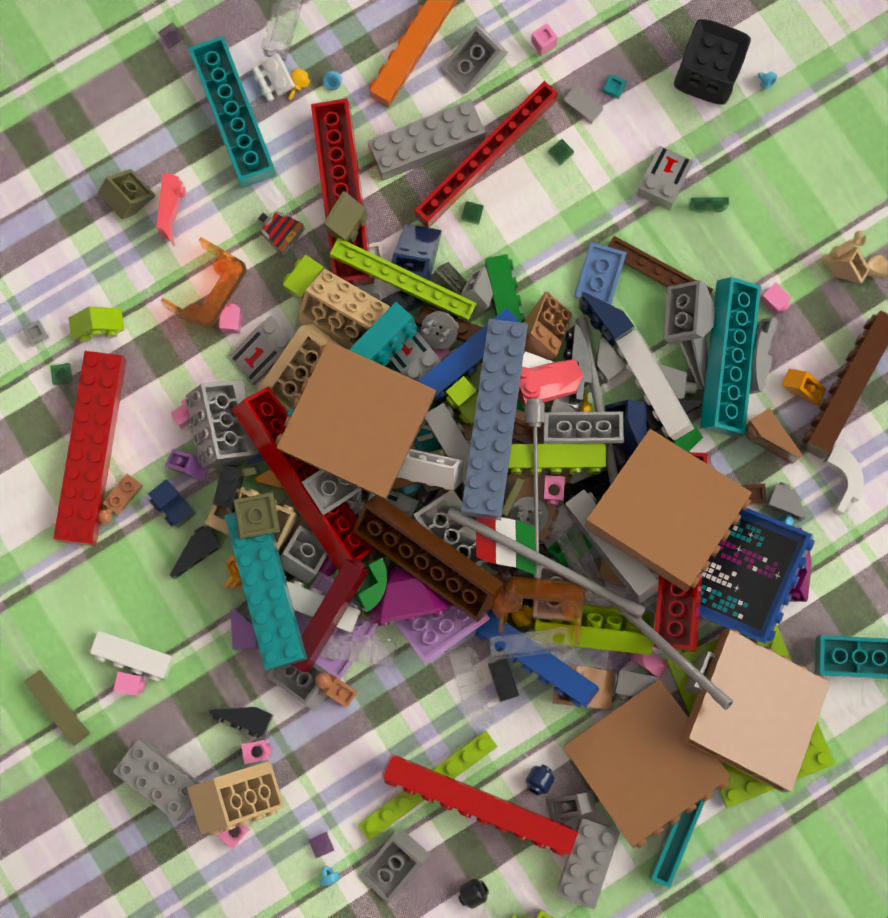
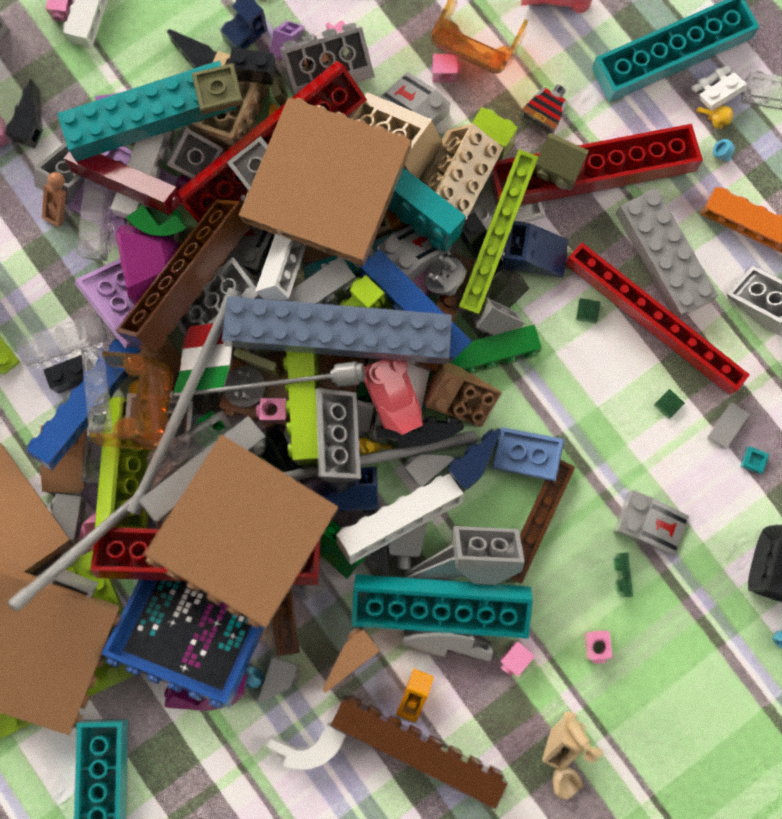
camera: 90 degrees right, 0 degrees up
(761, 236) = (594, 636): none -> bright pink brick

